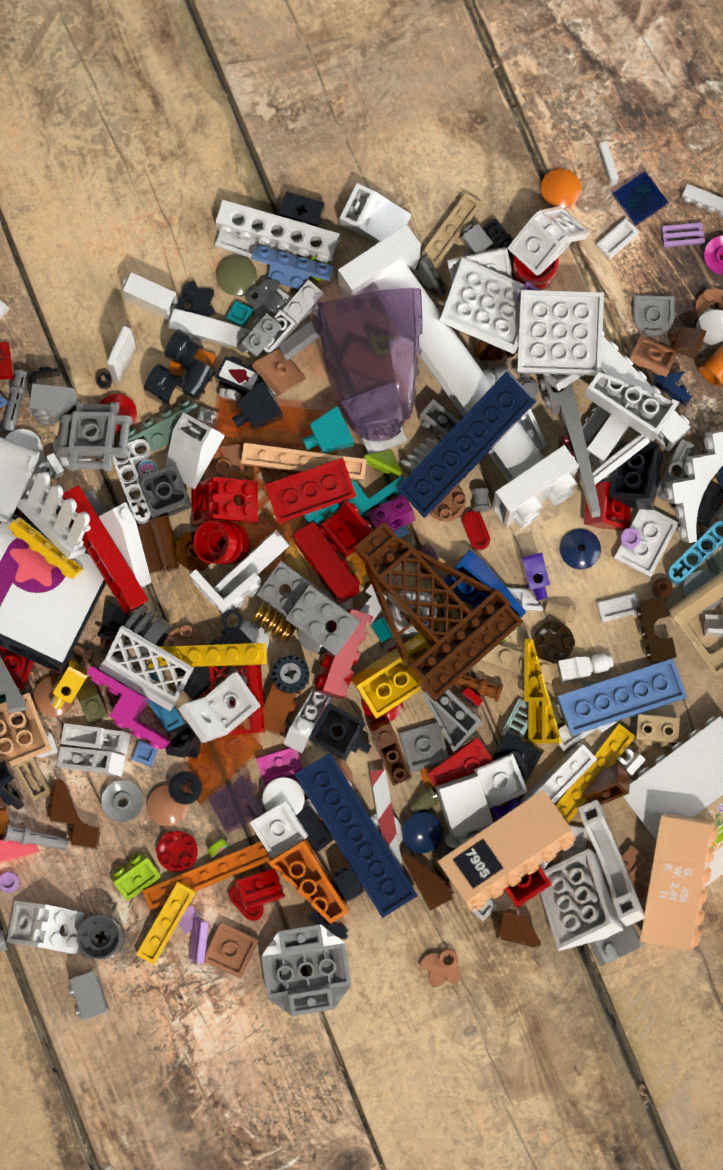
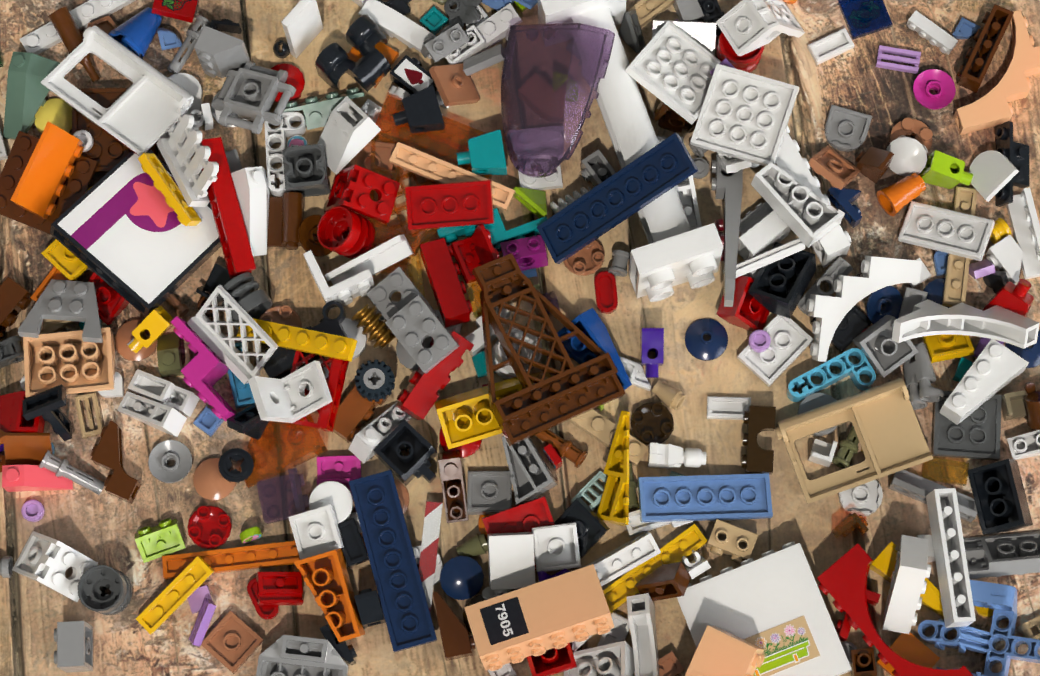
camera: 20 degrees right, 5 degrees down
(657, 592) = (779, 406): reddish brown plate -> none

